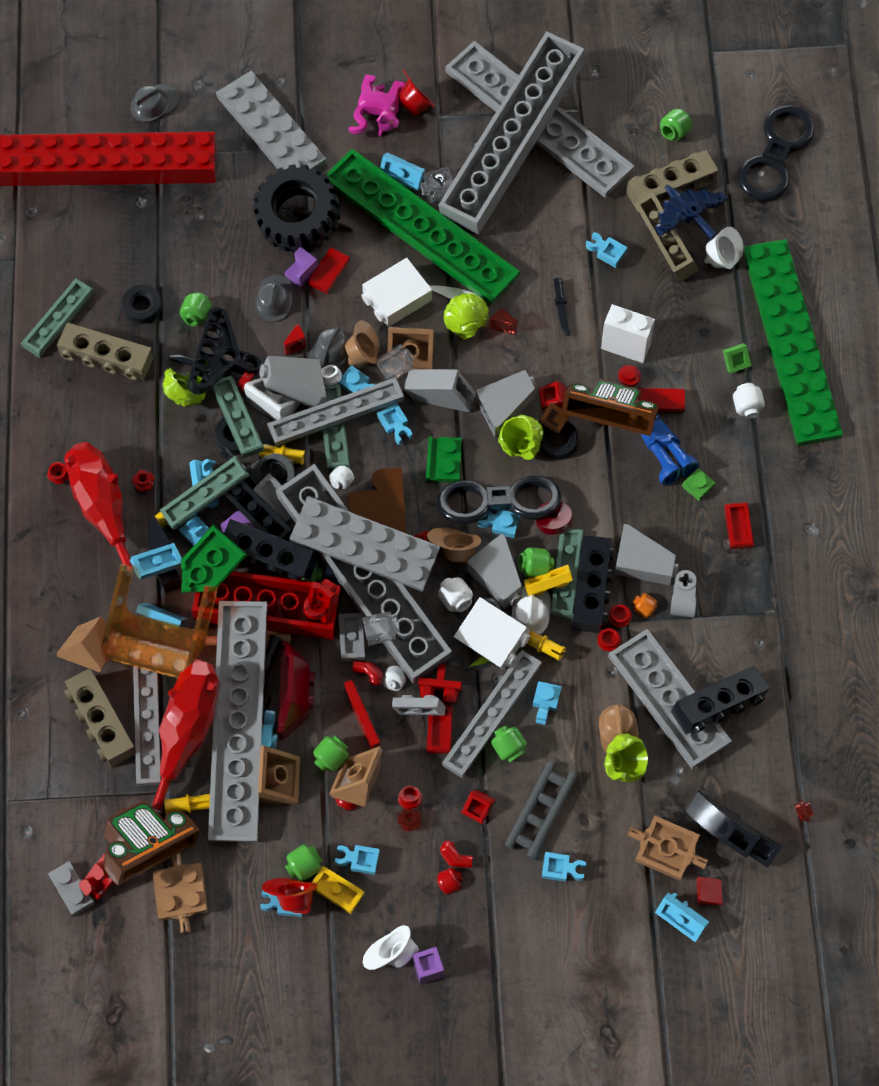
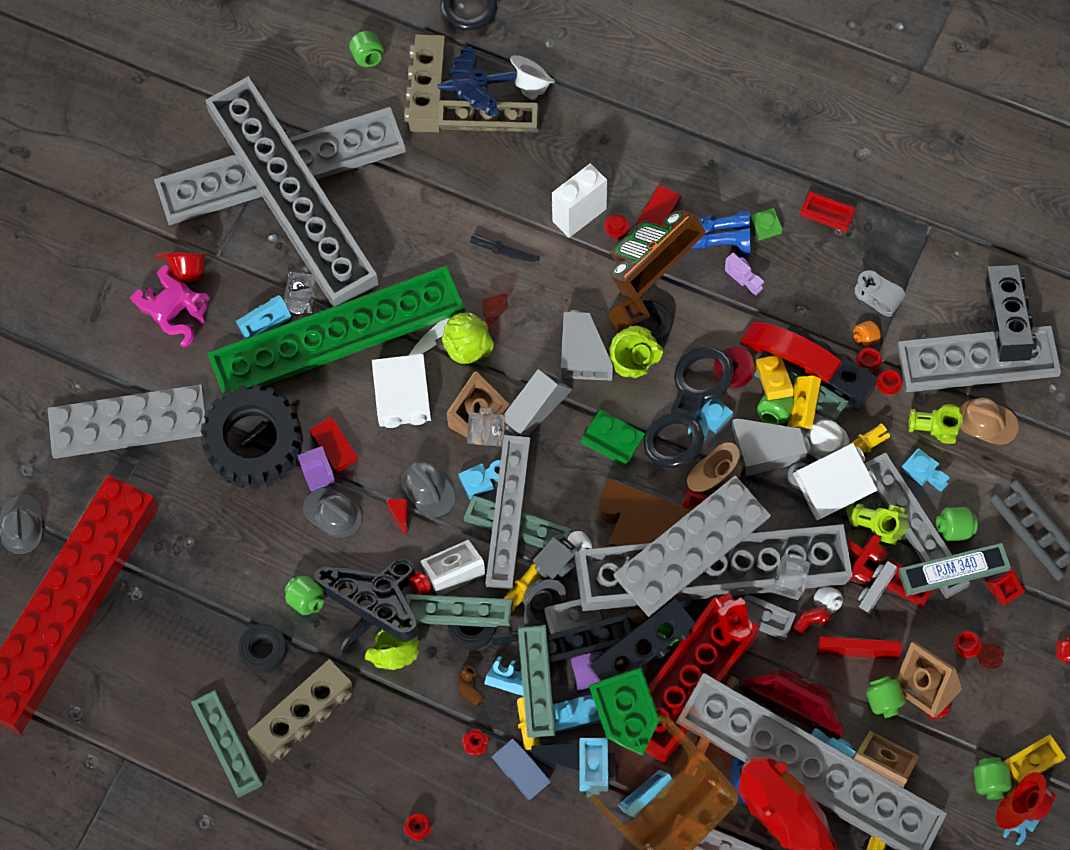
camera: 60 degrees left, 0 degrees up
(98, 494) = (474, 793): red piece -> none
(138, 519) = (520, 769): none -> sand blue slope
(184, 454) = (466, 686): none -> reddish brown arm
(295, 379) = (451, 531): light grey slope -> none
(308, 453) = (556, 557): none -> dark grey brick
(331, 375) = (459, 499): white plate -> none
(362, 859) = (1012, 721): medium azure plate -> none
(363, 345) = (445, 453): medium nougat piece -> none
(394, 421) = (544, 463): medium azure plate -> none
(452, 856) = (1049, 634): red arm -> none
(455, 594) = (773, 495): white head -> none
(465, 756) = (954, 569): none -> tile
(477, 688) = (880, 521): none -> lime connector
(552, 393) = (598, 304): red slope -> none
(556, 547) = (774, 377): none -> yellow plate
(587, 550) = (793, 348): none -> red slope
(591, 688) = (935, 422): none -> lime connector
(608, 251) = (469, 175): medium azure plate -> none
(626, 758) = (1026, 426): lime hair -> none
(643, 482) = (741, 272): none -> lavender plate
(644, 558) = (820, 308): light grey slope -> none
(737, 358) = (653, 123): bright green plate -> none
(748, 400) = (705, 135): white head -> none
(792, 343) = (659, 70): green plate -> none

